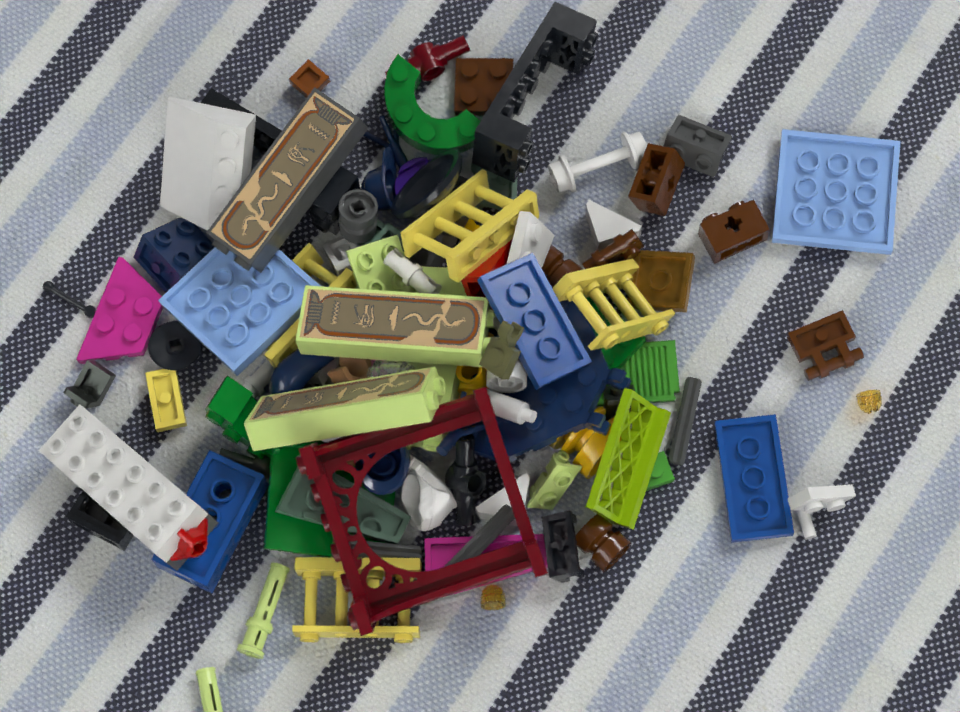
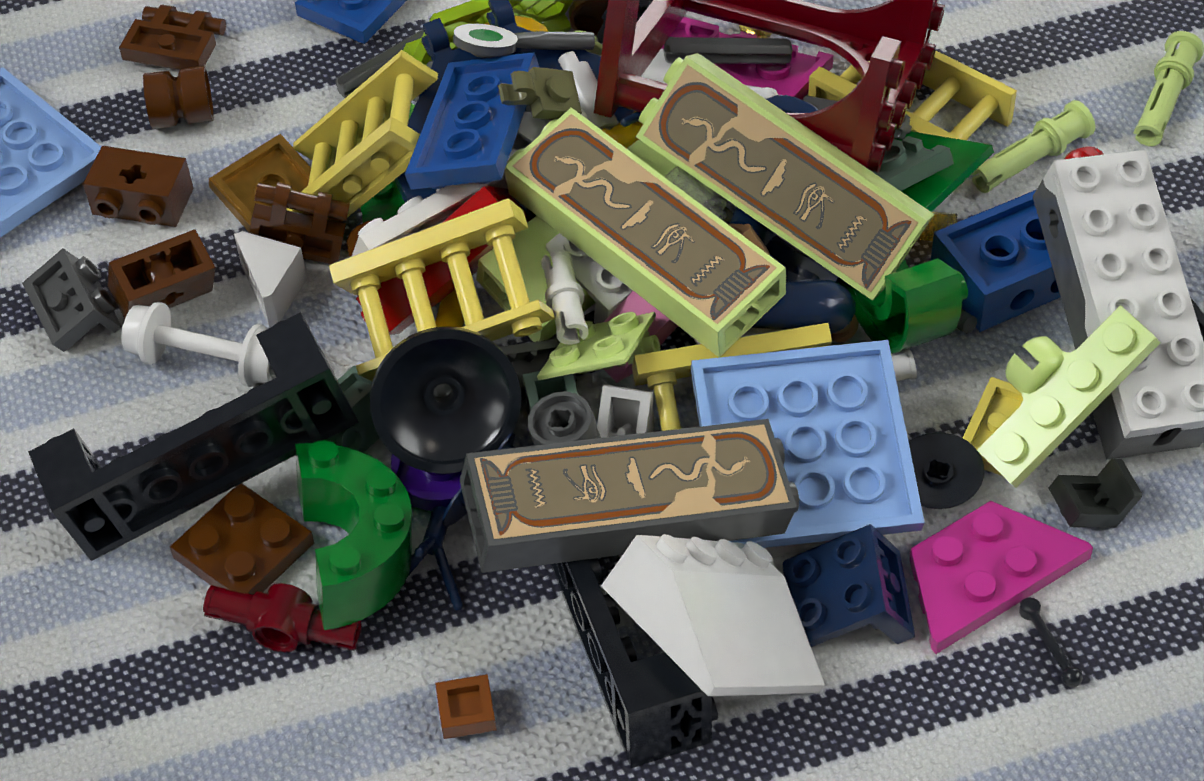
camera: 145 degrees left, 20 degrees down
(126, 402) = (1063, 391): none -> yellowish green plate
(578, 385) = (494, 41): none -> dark grey piece
(774, 295) = (178, 97): none -> reddish brown wheel

